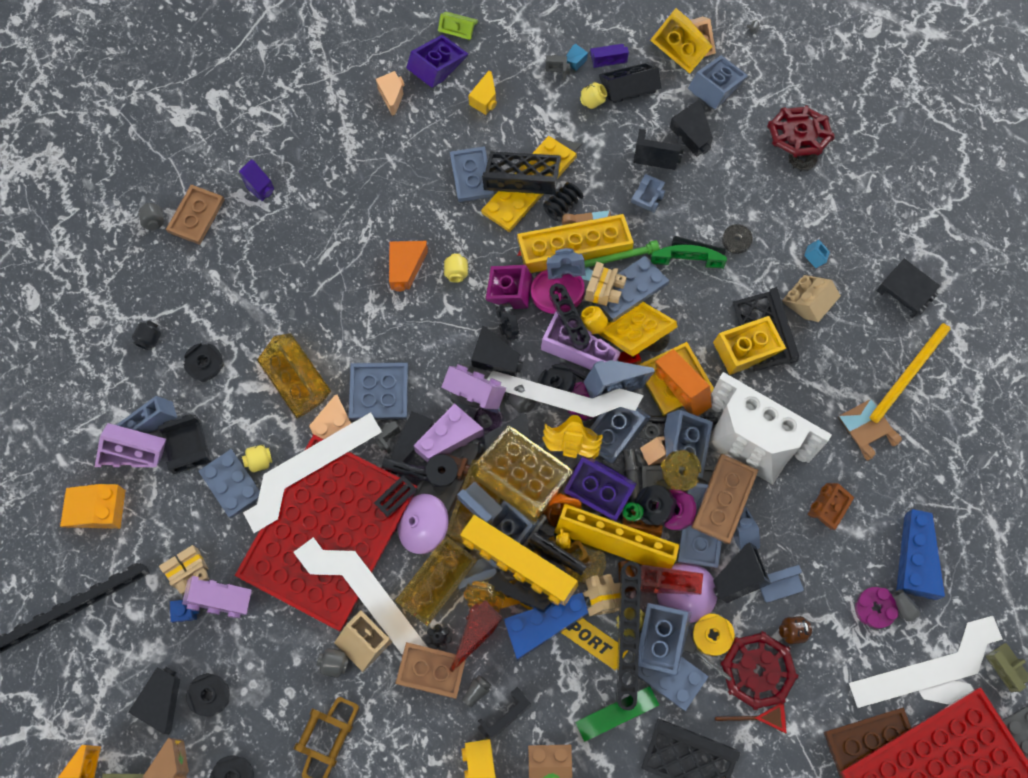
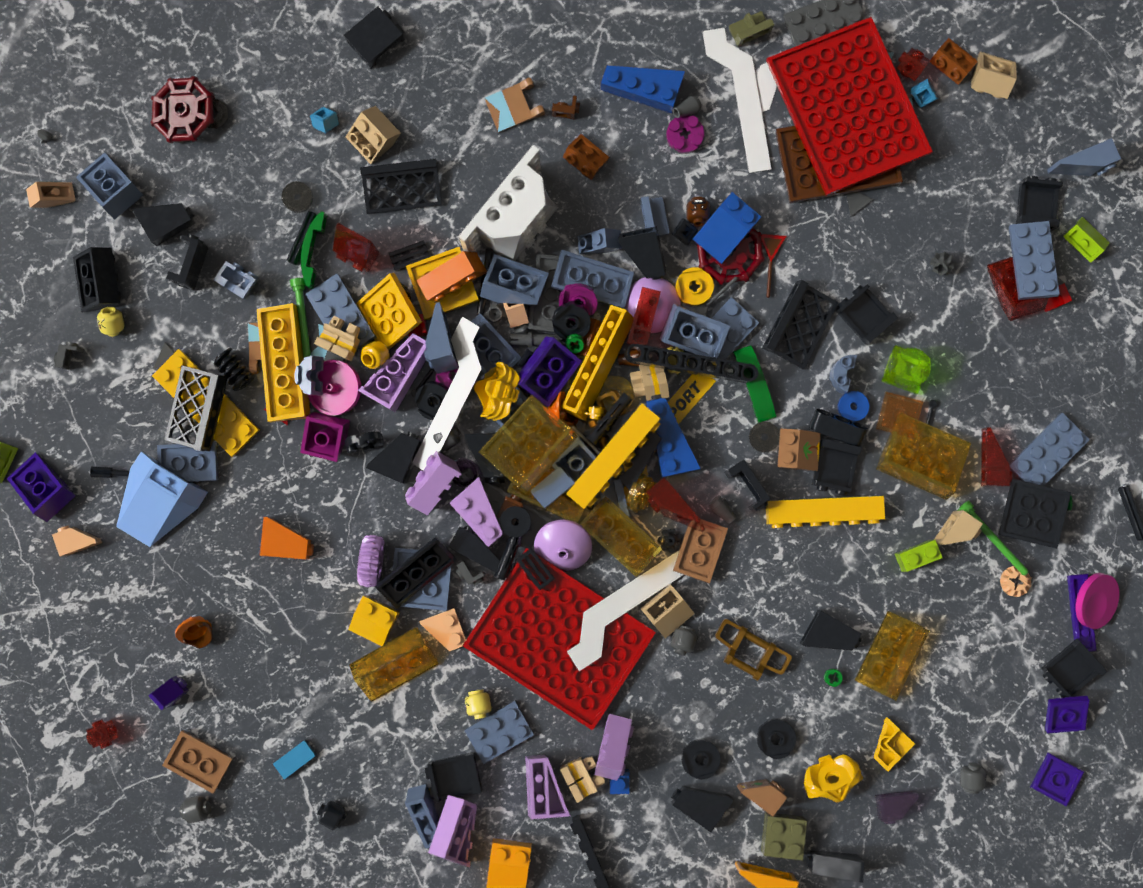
camera: 85 degrees left, 15 degrees up
(171, 531) = (543, 792): none -> lavender wedge
(199, 297) = (294, 759): none -> dark azure tile
(207, 371) = (379, 757): black plate -> none
(218, 132) = (107, 730): none -> clear red brick
(304, 464) = (491, 655): white sticker -> none
(314, 196) = (195, 632): none -> orange piece
(336, 352) = (373, 620): none -> yellow slope
(384, 382) = (416, 572): none -> black slope
(392, 340) = (370, 561): none -> lavender gear
(433, 151) = (156, 500): none -> light blue wedge
(455, 111) = (107, 472): none -> black axle
(456, 268) = (296, 489): light yellow head -> none
(483, 95) = (93, 439): yellow slope -> none
(566, 317) = (368, 377): black beam -> none
(567, 723) = (771, 432): none -> clear smoke piece
(576, 57) = (57, 334): dark azure slope -> none
(609, 55) = (58, 298): dark purple panel -> none
(670, 470) = (536, 298): clear yellow plate -> none
(681, 41) = (56, 217): yellow slope -> none
(694, 290) = (354, 248): none -> clear red slope
(696, 330) = (405, 249): none -> black tile
(725, 499) = (573, 255): medium nougat tile -> none
(748, 344) = (417, 205): yellow slope -> none
(771, 618) = (685, 231): none -> black tile
(783, 661) = (727, 228): none -> blue slope
(874, 479) = (563, 110): none -> reddish brown bracket
(909, 373) = (462, 54): yellow axle -> none

